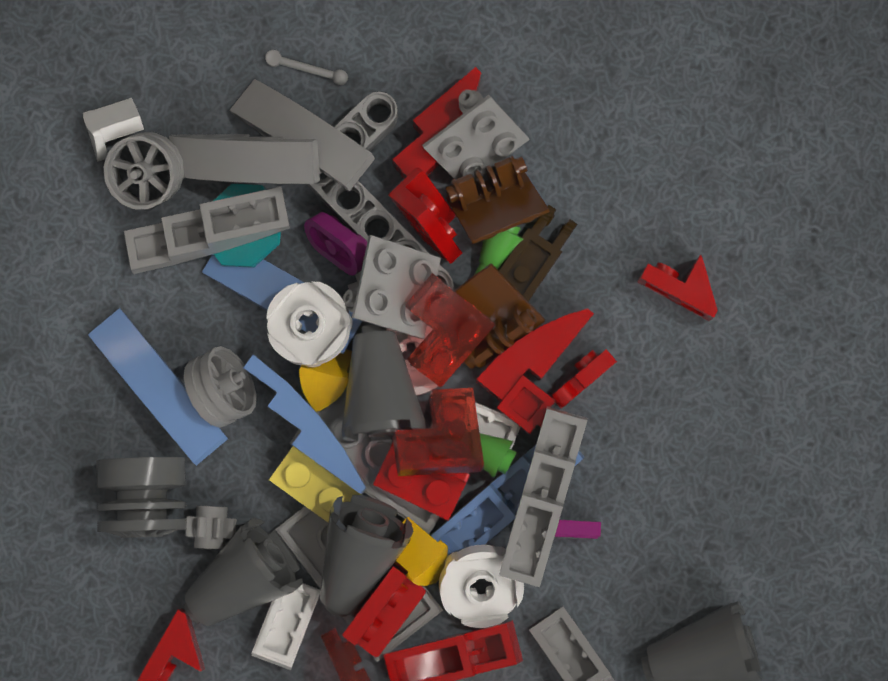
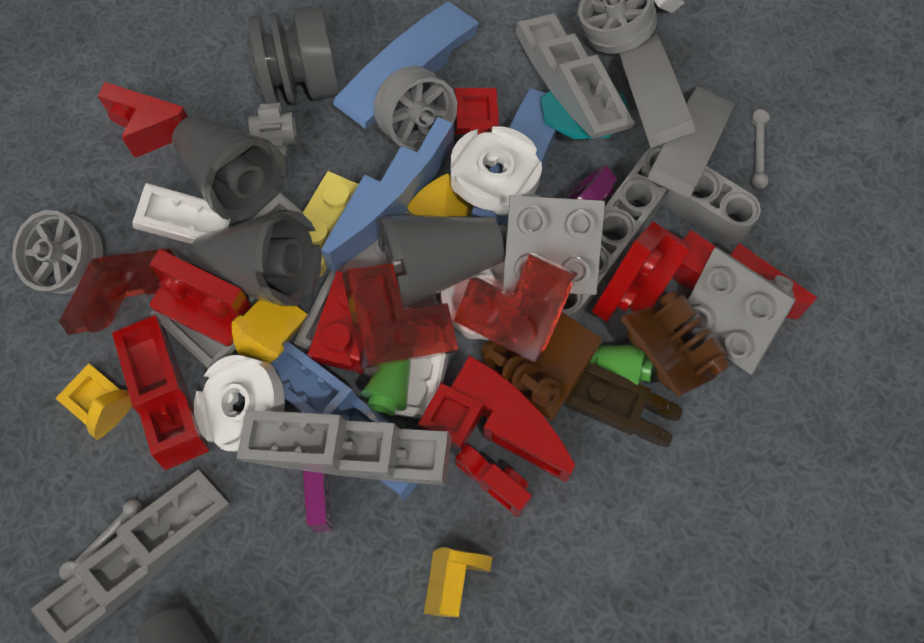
camera: 85 degrees right, 15 degrees down
(228, 329) = (476, 110): none -> red plate
(659, 430) = (448, 577): none -> yellow tile
(692, 294) = (619, 591): red slope -> none

